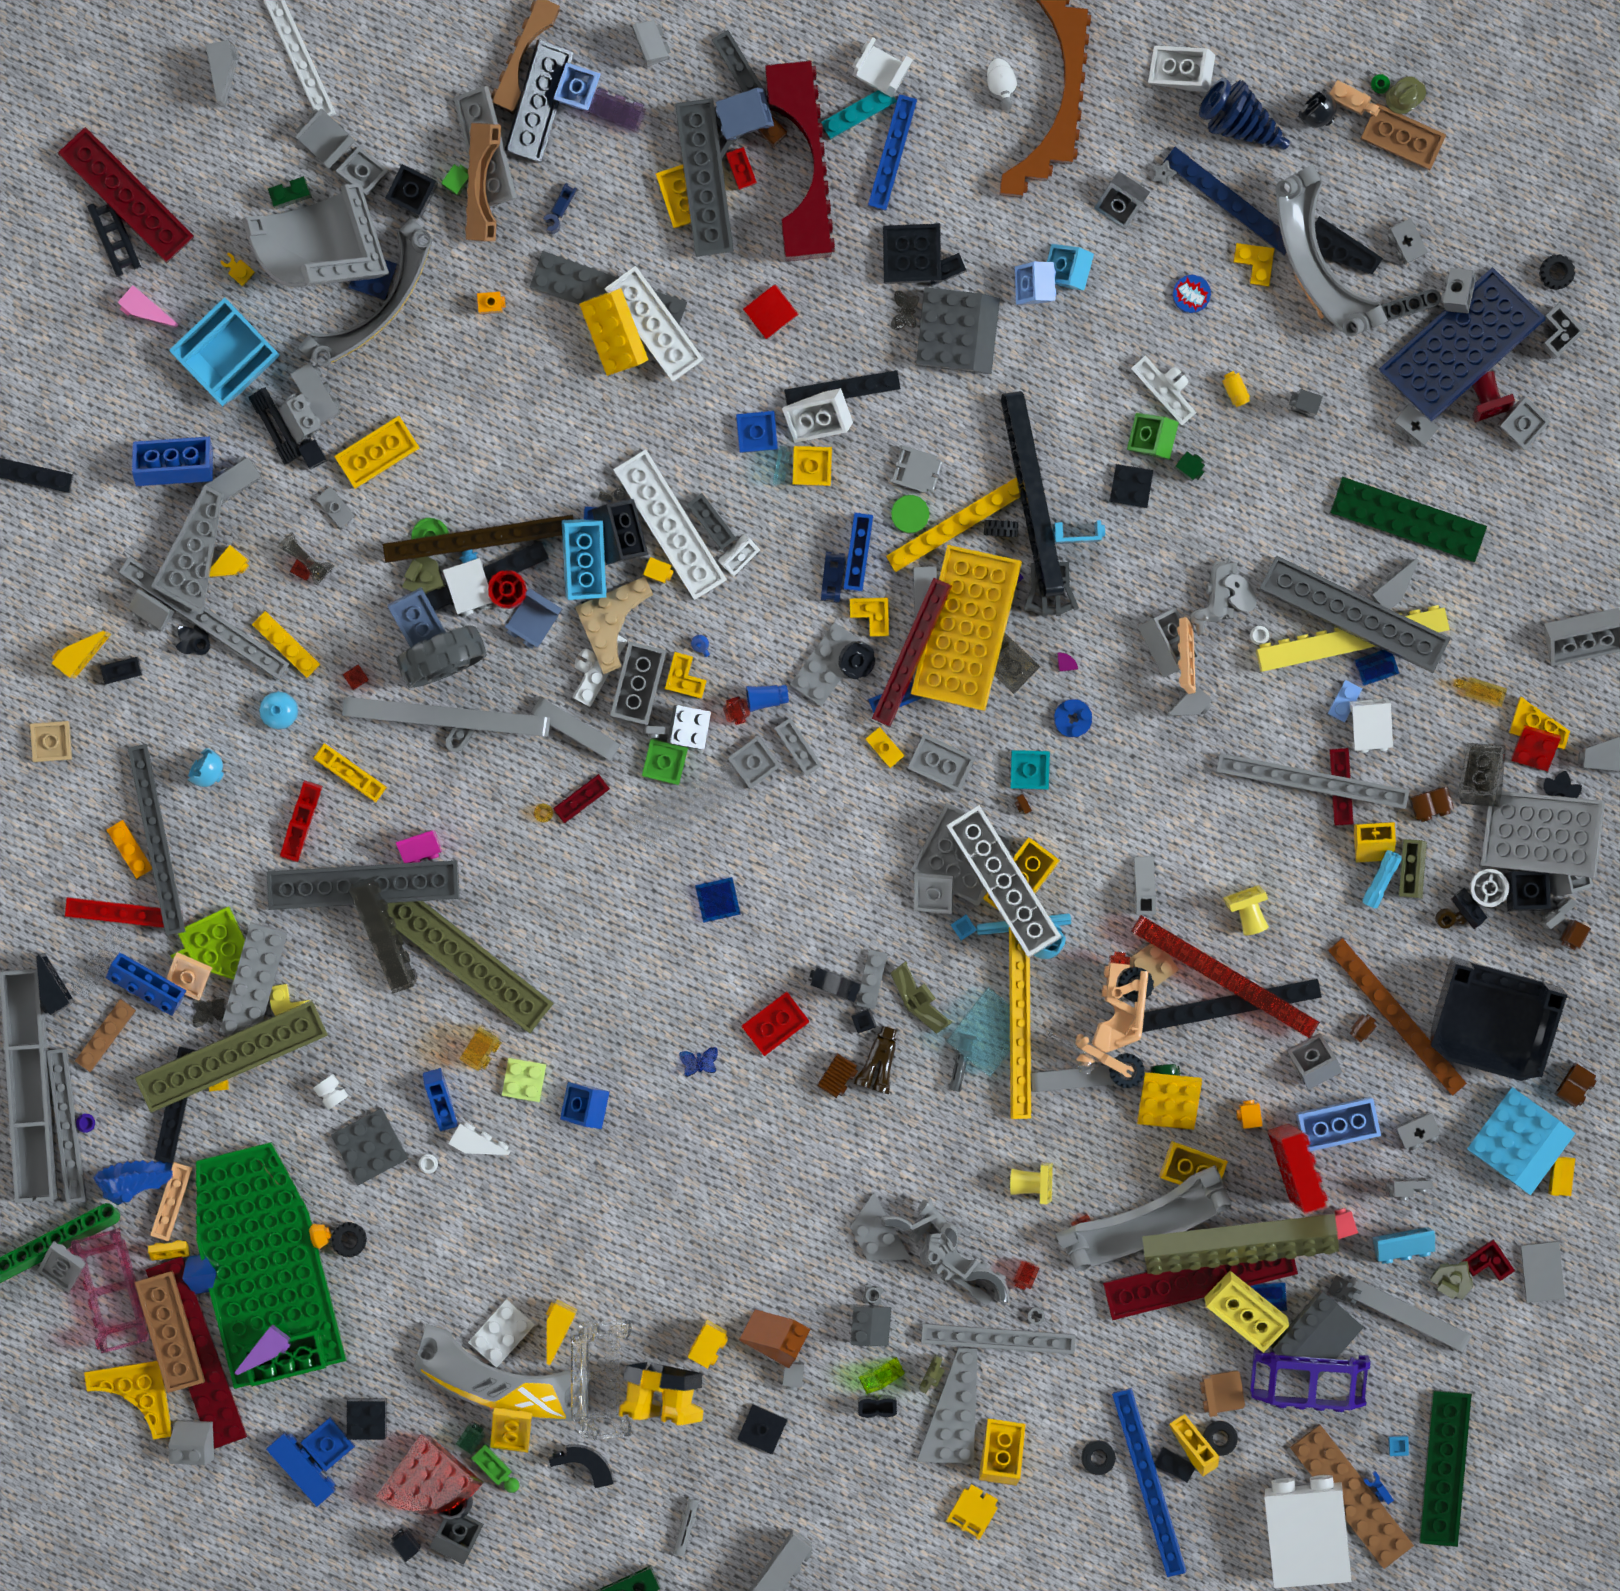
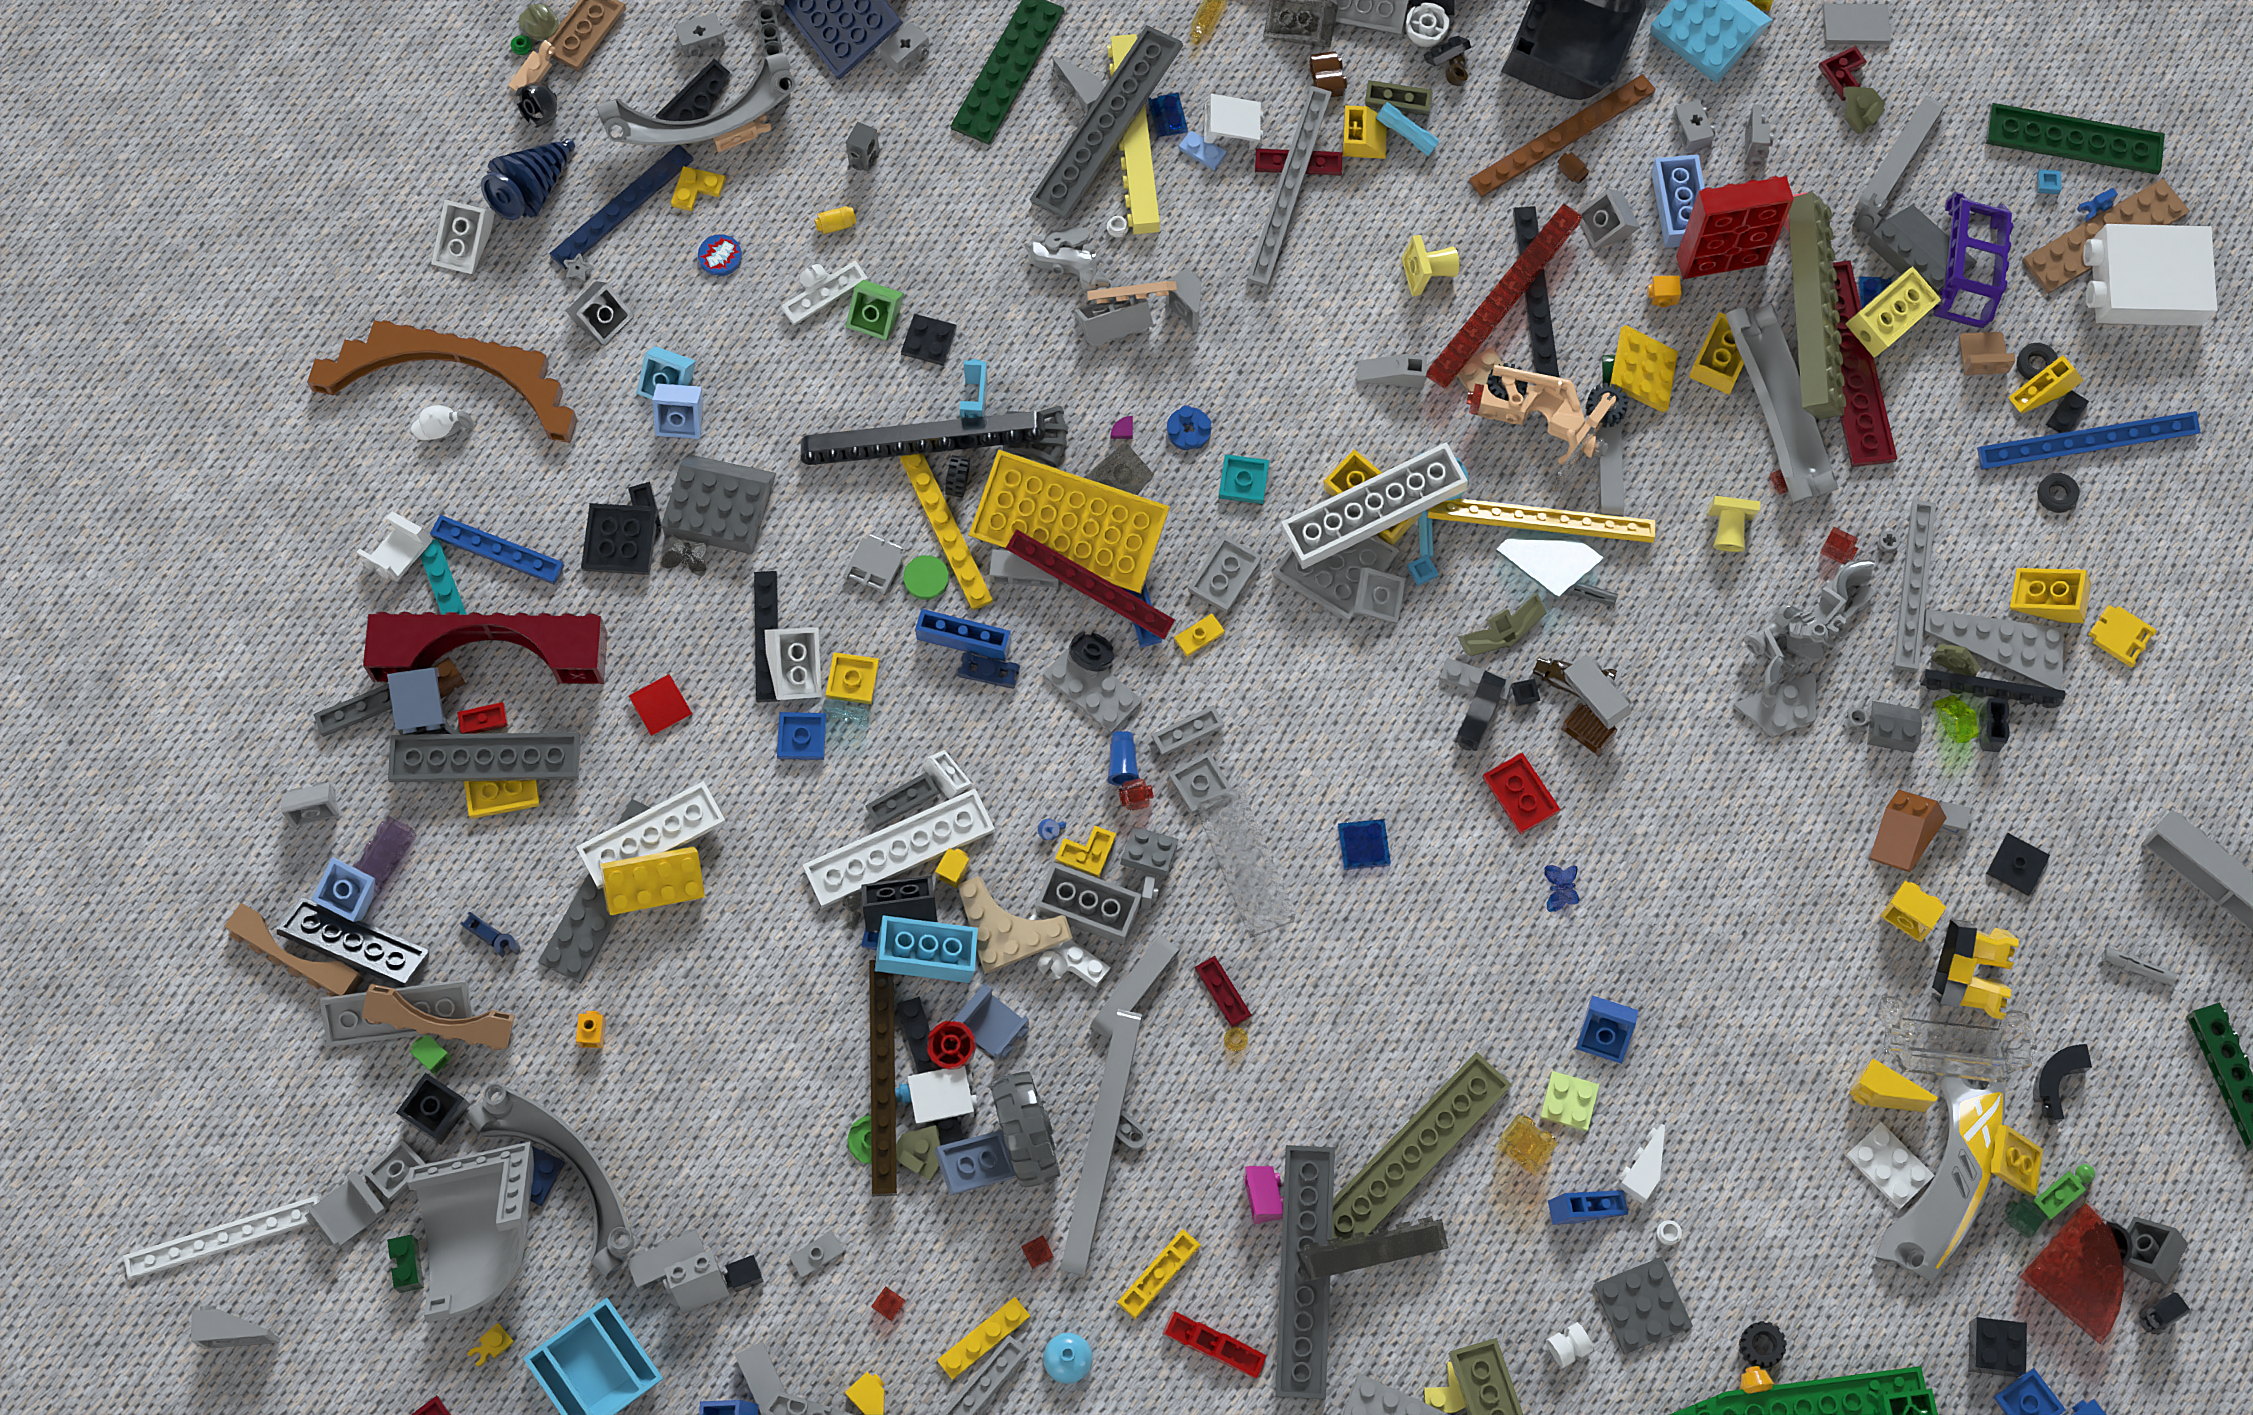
camera: 80 degrees left, 20 degrees down
(261, 401) = (666, 1331): black container -> none
(317, 569) = (894, 1281): clear smoke animal -> none
(377, 452) = (754, 1192): yellow plate -> none
(664, 761) = (1188, 886): bright green plate -> none
(863, 1079) = (1598, 691): none -> light grey brick
(876, 610) = (1038, 624): yellow plate -> none
(911, 1397) = (1989, 687): none -> black plate
(1022, 804) = (1284, 489): reddish brown plate -> none
(1190, 466) = (915, 273): dark green brick -> none
(1404, 1245) = (1820, 149): medium azure slope -> none

